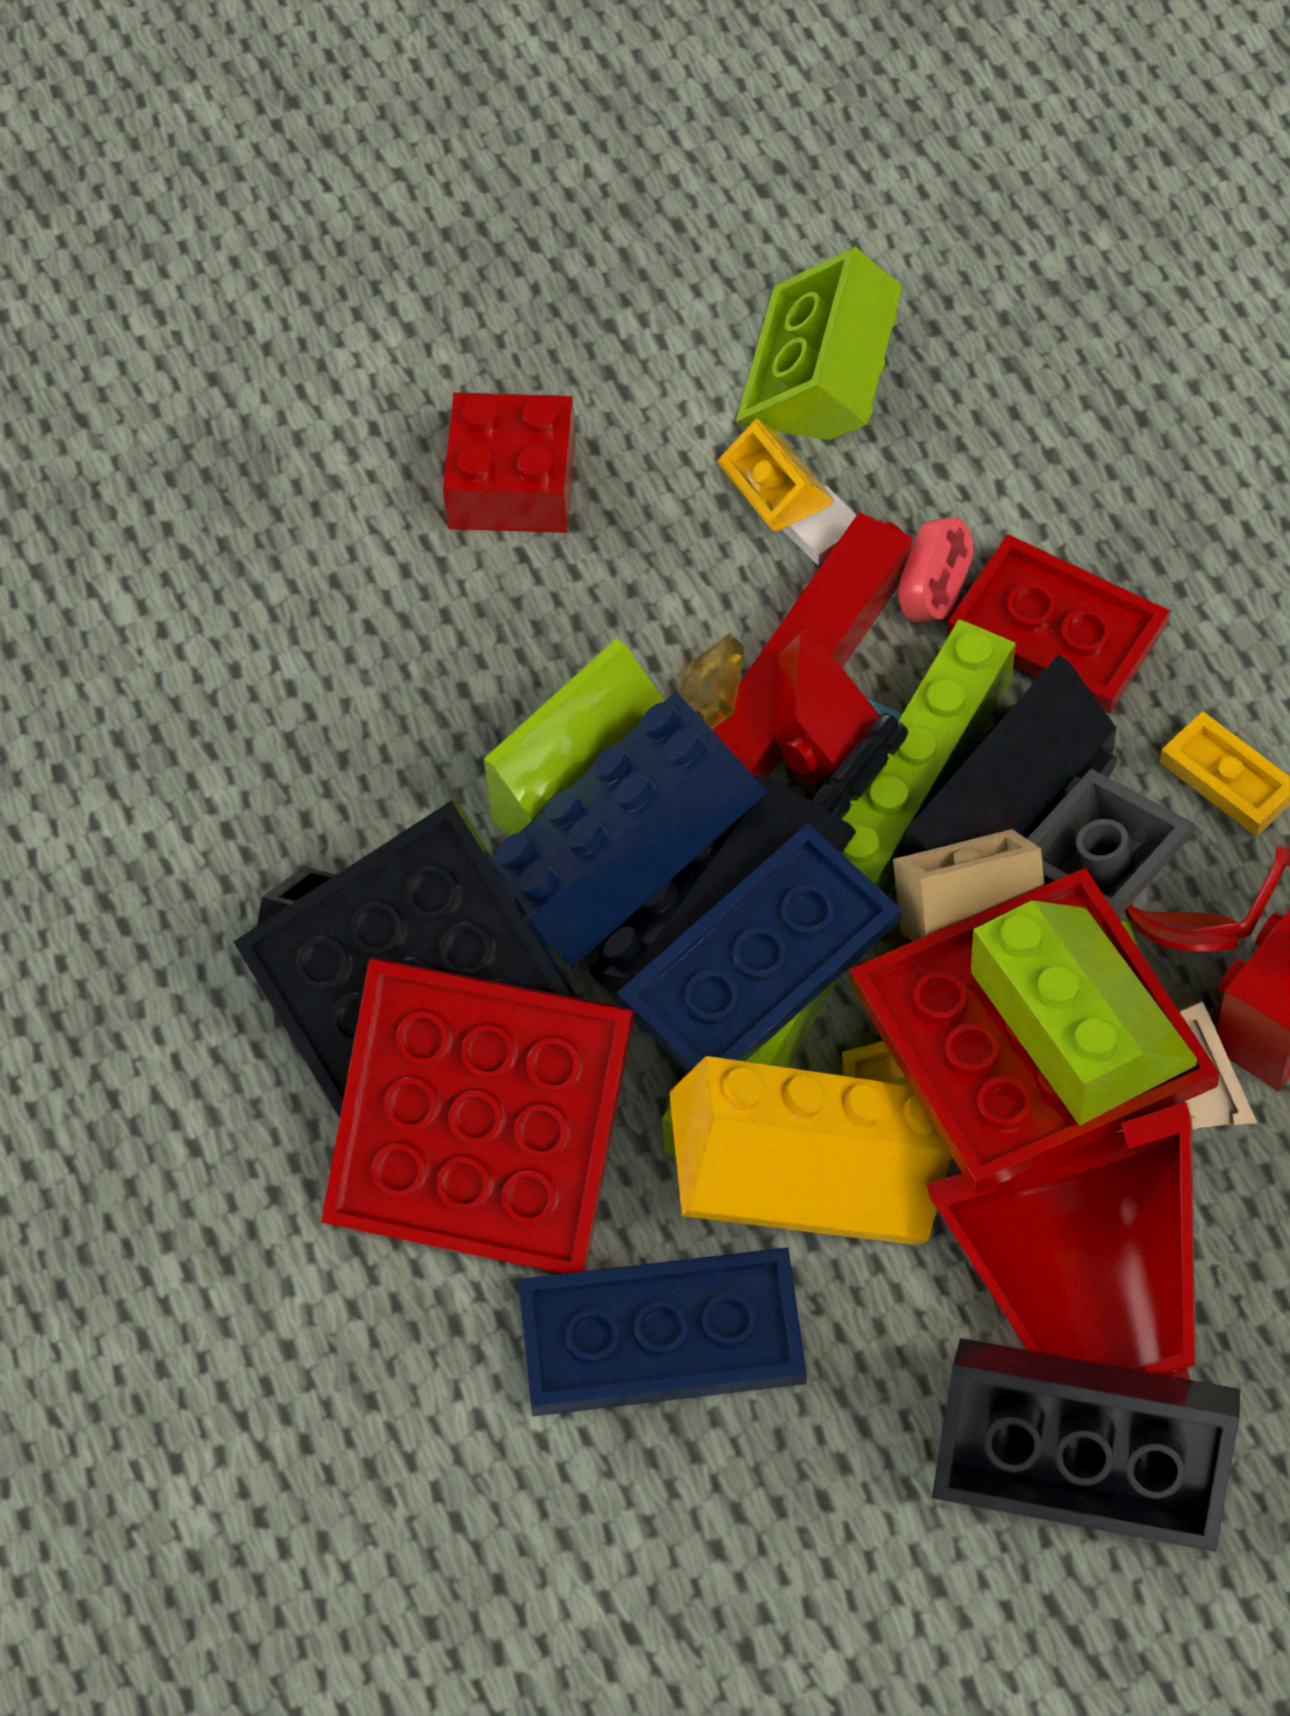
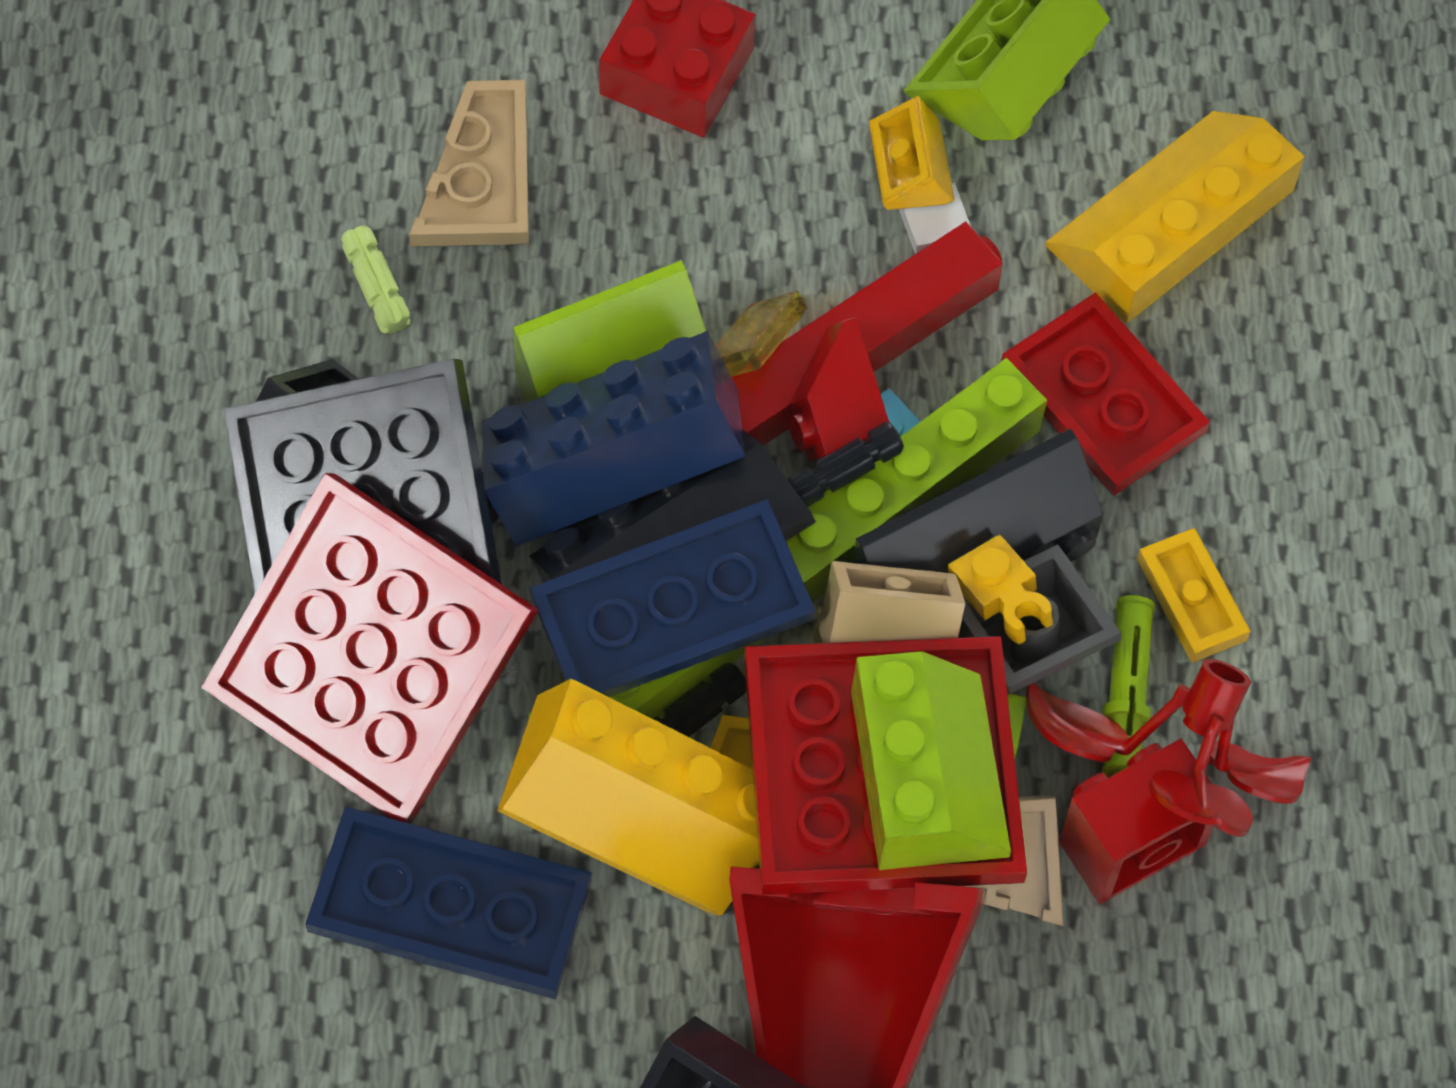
camera: 15 degrees right, 5 degrees up
(313, 776) = (375, 280): none -> yellowish green axle
(371, 639) = (482, 173): none -> tan wing
(818, 1042) = (705, 700): none -> black axle
(935, 570) = (1015, 301): coral beam -> none
(1045, 432) = (1178, 210): none -> yellow slope
(1061, 823) = (1000, 581): none -> yellow plate
(1210, 874) = (1130, 672): none -> lime pin

